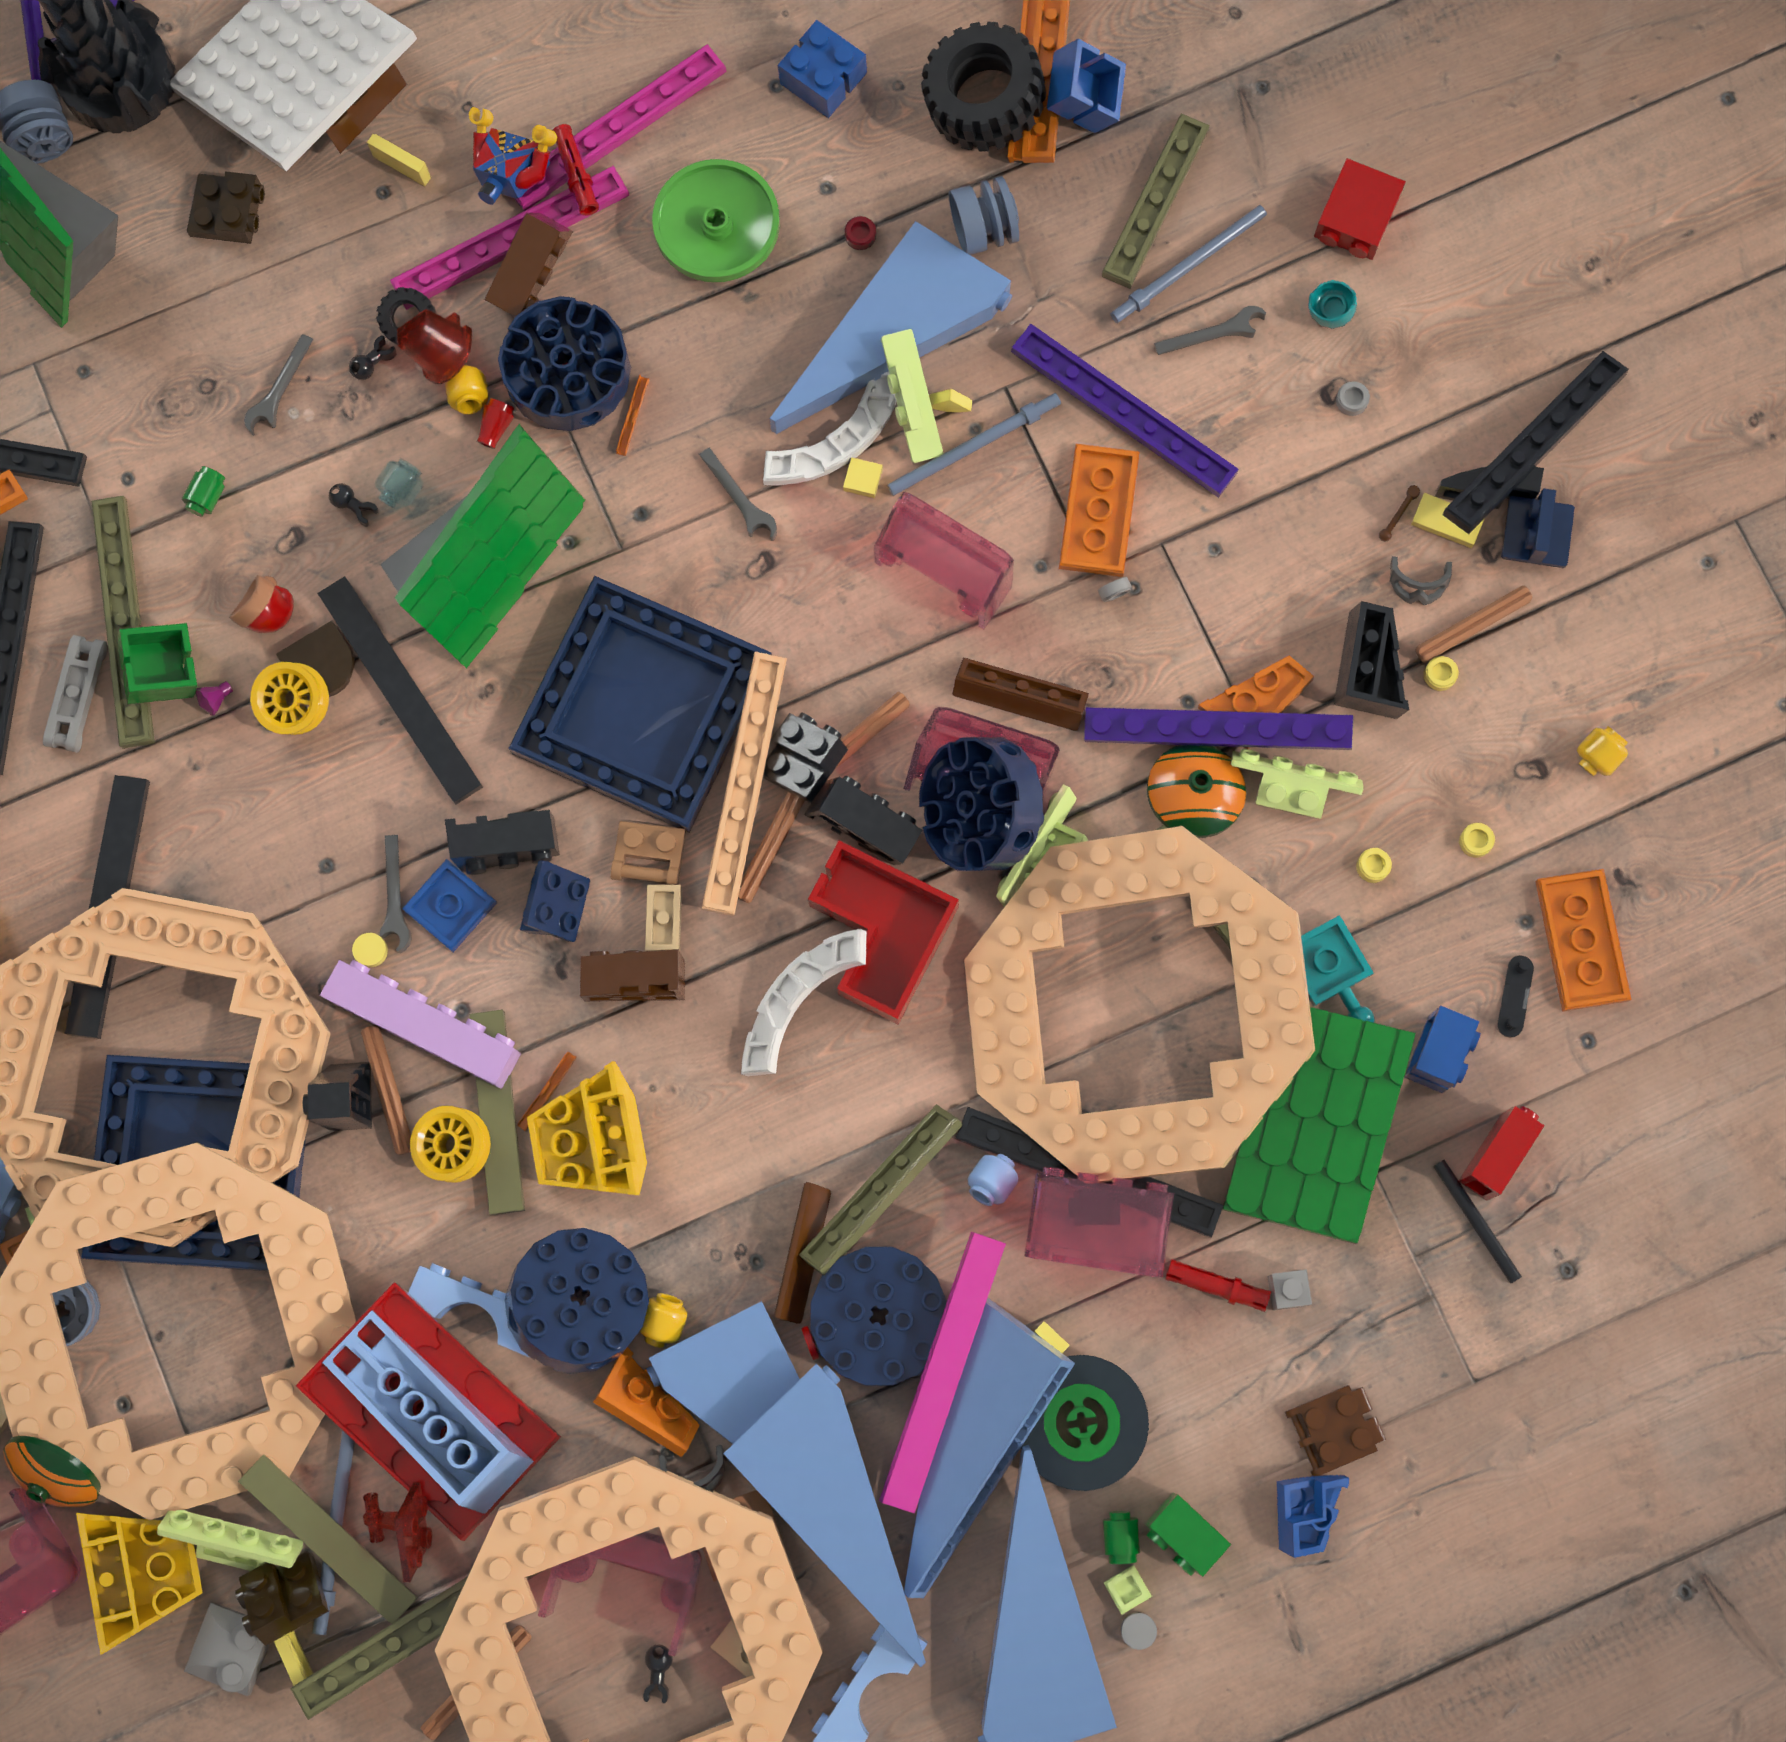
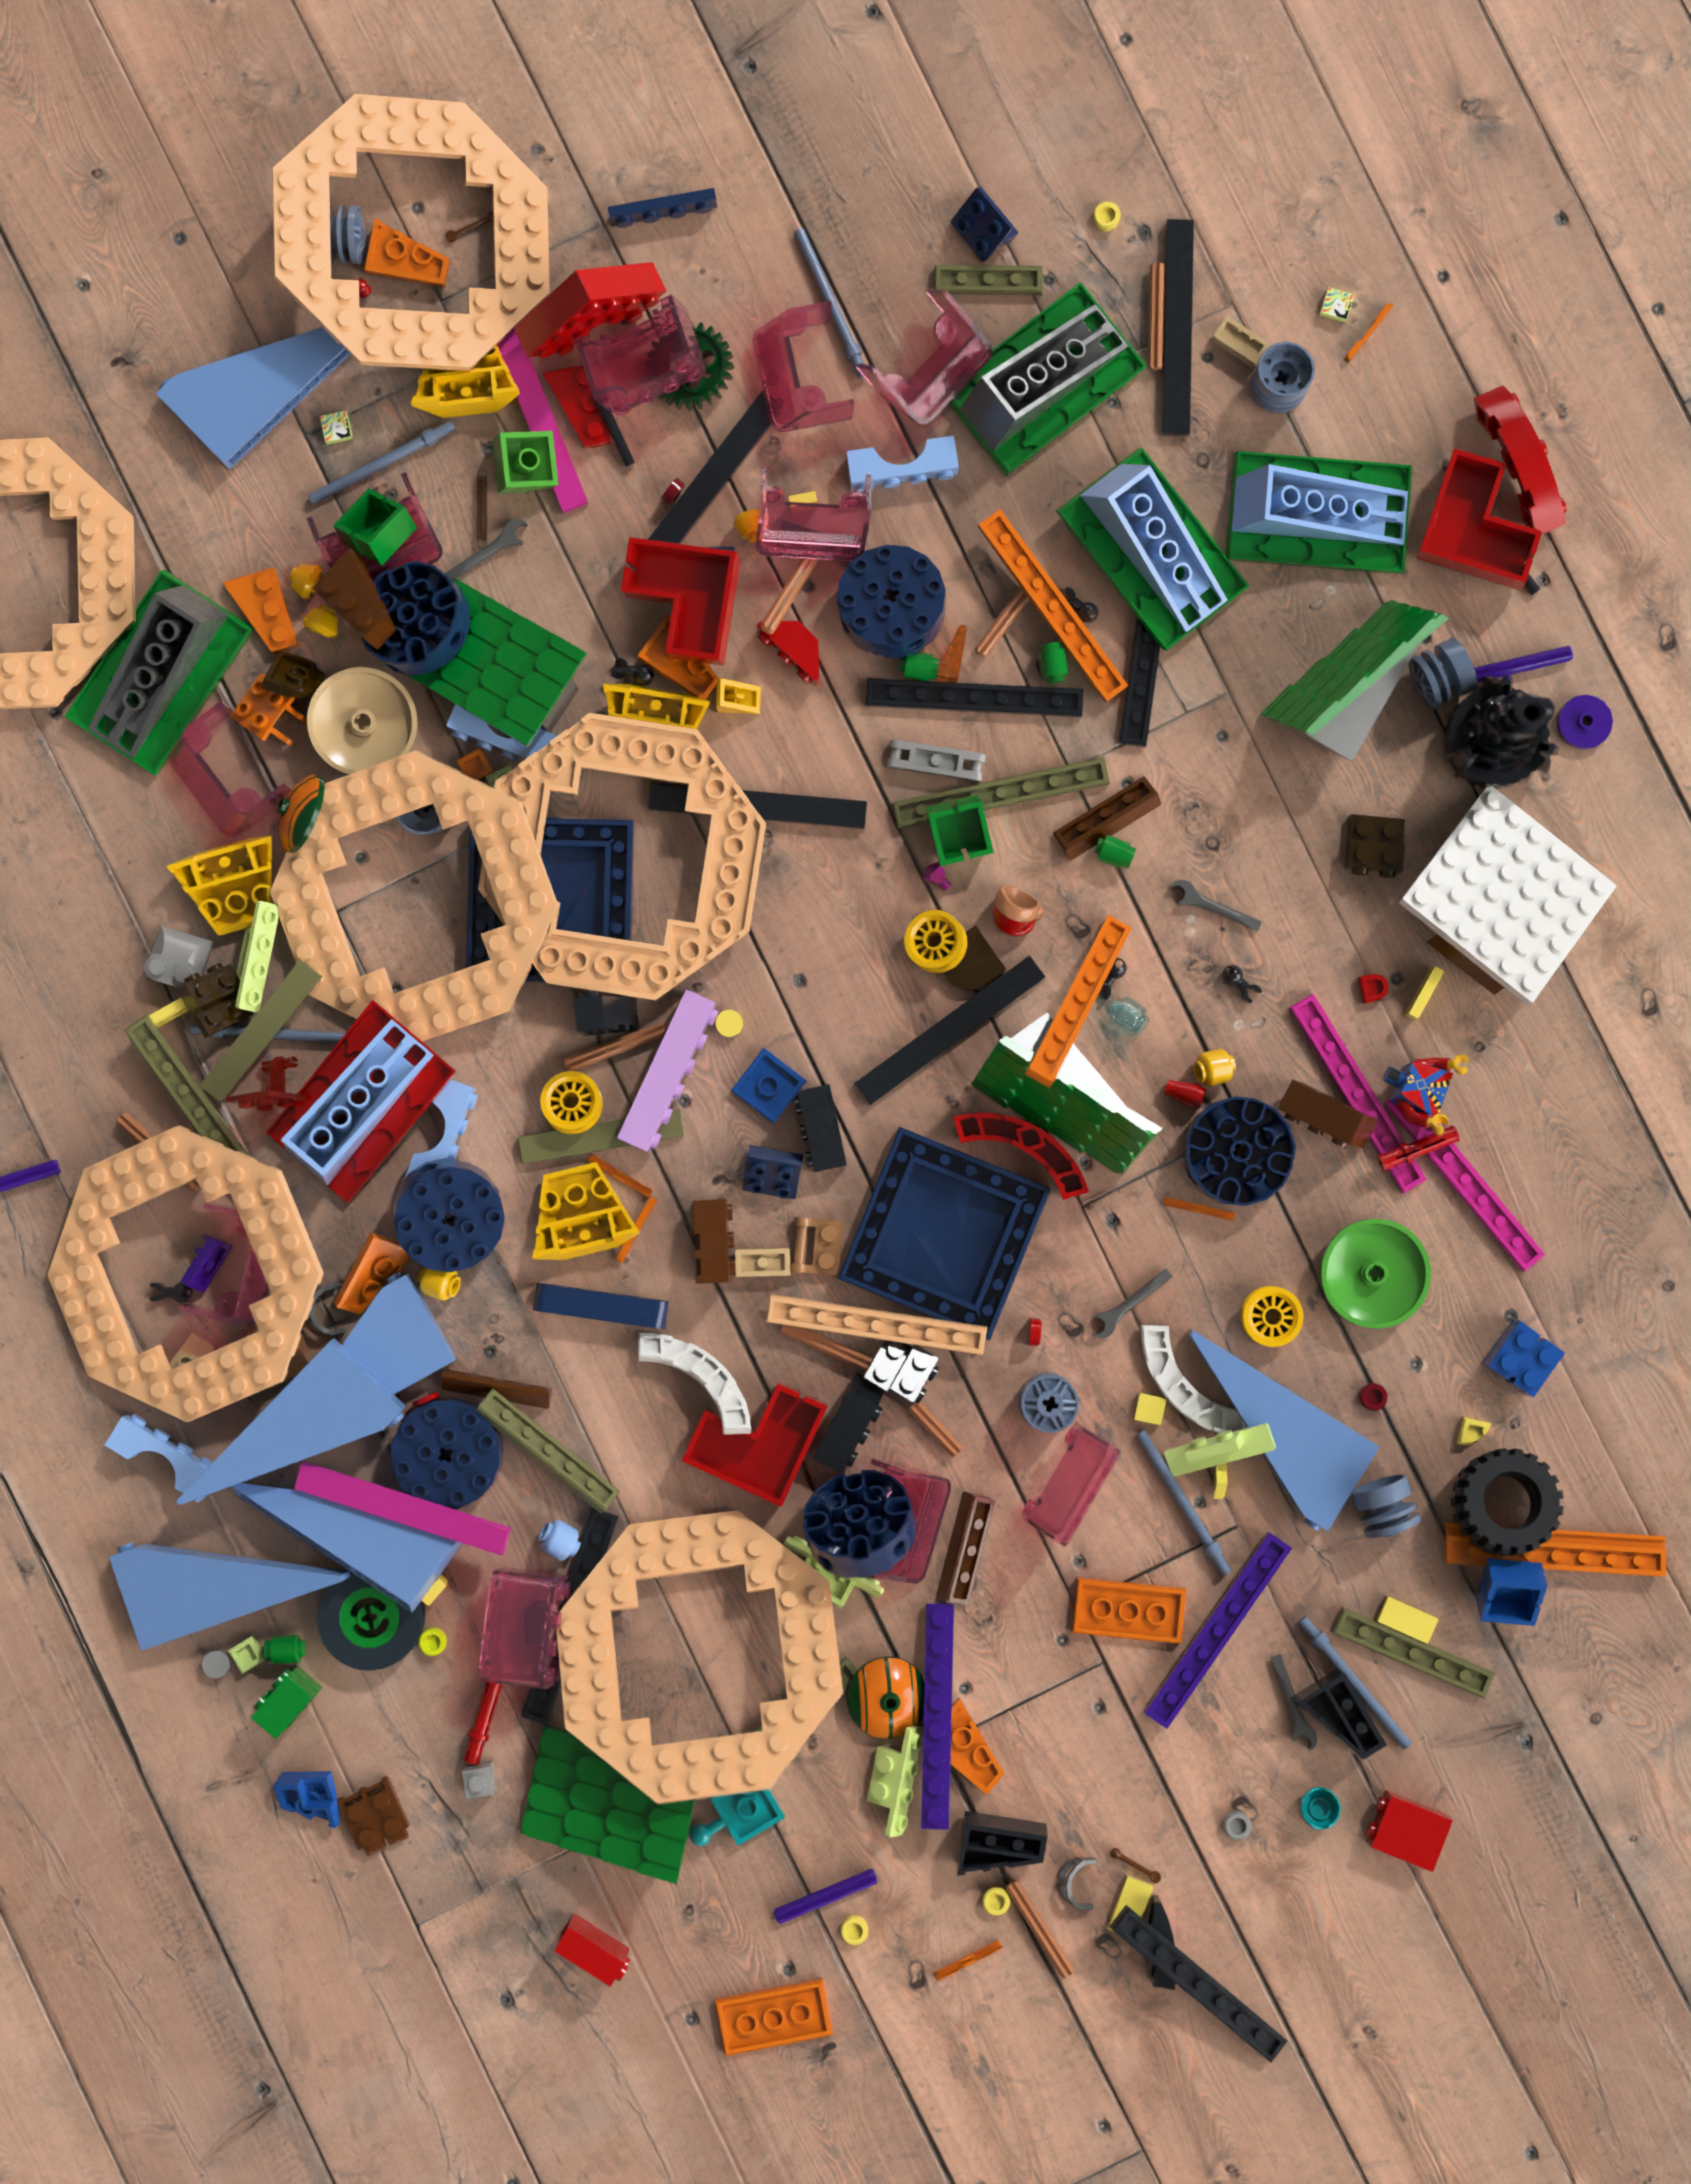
camera: 85 degrees right, 10 degrees up
(164, 501) = (1107, 818): none -> reddish brown slope
(367, 523) = (1078, 1001): none -> orange plate
(389, 217) = (1372, 987): none -> red tile
(392, 302) = (1294, 1009): black tyre -> none
(394, 919) = (756, 1041): dark grey piece -> none
(436, 344) = (1248, 1043): clear red container -> none
(533, 597) = (1028, 1138): none -> red brick
(599, 1064) = (639, 1224): none -> orange piece
(622, 1623) = (206, 1263): none -> dark purple plate
(704, 1119) = (600, 1305): none -> dark blue beam
(749, 313) = (1285, 1296): none -> yellow wheel
(765, 603) = (1034, 1333): none -> red tile
(849, 604) = (1041, 1387): none -> sand blue wheel
(903, 129) = (1471, 1430): none -> light yellow tile
(1115, 589) = (1057, 1626): light grey tile -> none
(1116, 1346) = (433, 1641): none -> neon yellow tile
(1117, 205) = (1407, 1619): none -> light yellow tile
(1223, 273) = (1341, 1712): none -> black wedge
(1374, 865) = (830, 1844): light yellow tile -> none
(1436, 872) = (825, 1896): none -> dark purple axle
(1442, 1050) = (674, 1905): blue piece -> none
(1477, 1221) = (541, 1928): black bar -> none
(1512, 709) = (967, 1960): none -> orange piece
(1515, 996) = (726, 1960): black piece -> none
(1538, 530) = (1123, 1983): dark blue bracket -> none
(1602, 751) = (931, 2035): yellow head -> none

